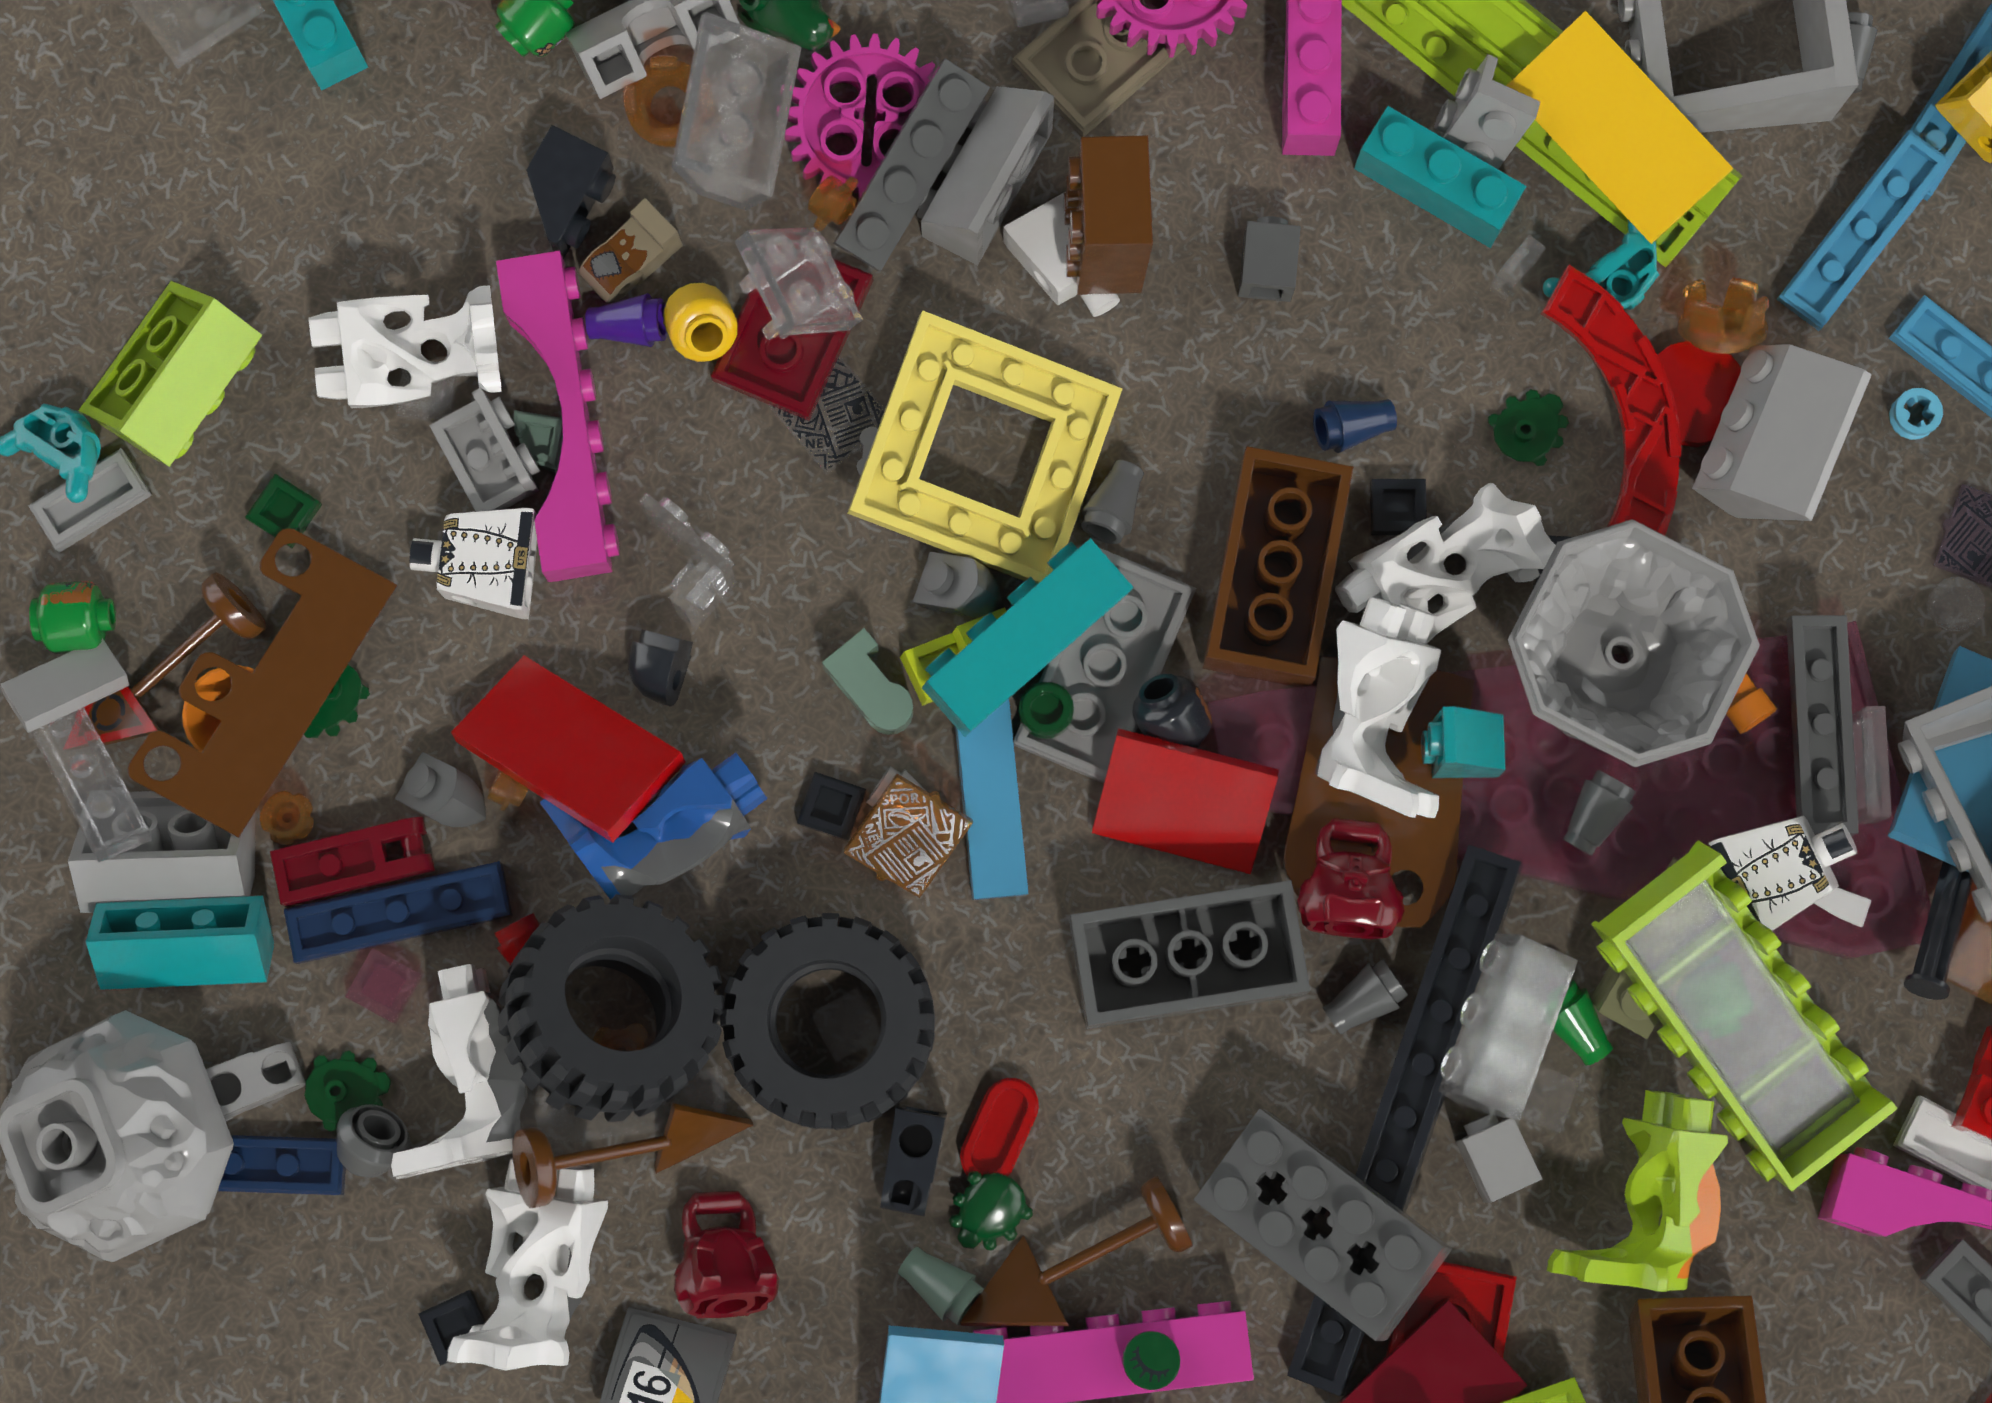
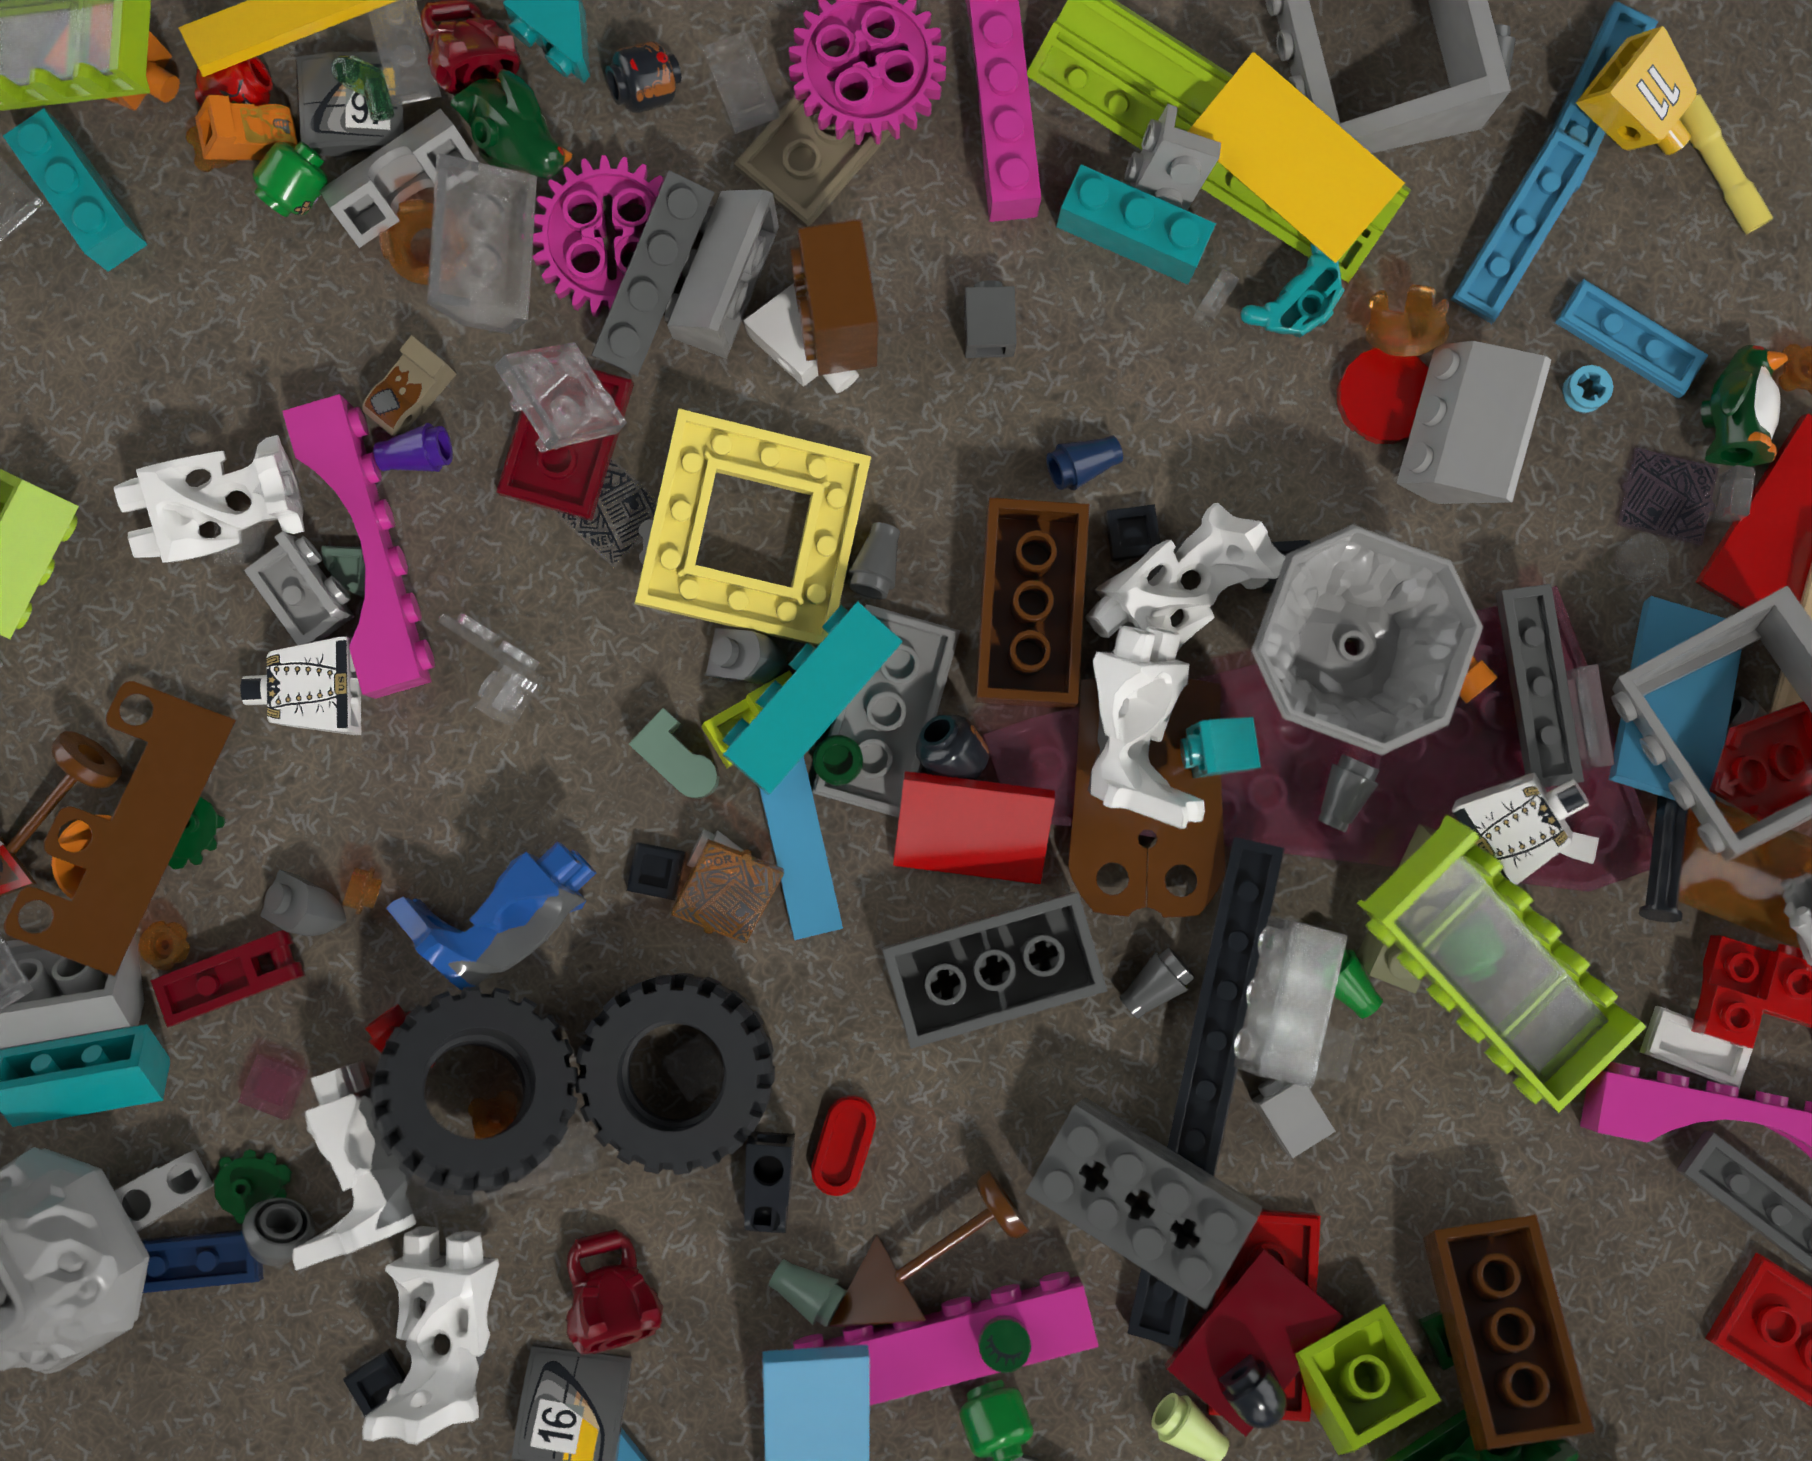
camera: 10 degrees left, 5 degrees up
(283, 507) = (123, 661): dark green tile -> none
(397, 912) = (277, 1018): dark blue tile -> none
(566, 183) = (340, 332): black slope -> none
(568, 748) = (407, 854): red tile -> none
(659, 666) = (483, 763): black piece -> none
(685, 1134) = (556, 1191): reddish brown piece -> none
(700, 322) = (478, 443): yellow head -> none
(832, 201) = (584, 316): clear orange plate -> none
(989, 1210) = (843, 1217): dark green piece -> none
(1351, 890) = (1133, 892): dark red piece -> none
(1529, 427) = (1242, 444): dark green piece -> none
(1639, 391) = (1340, 403): red tile -> none
(1670, 1180) = (1452, 1109): lime hips -> none

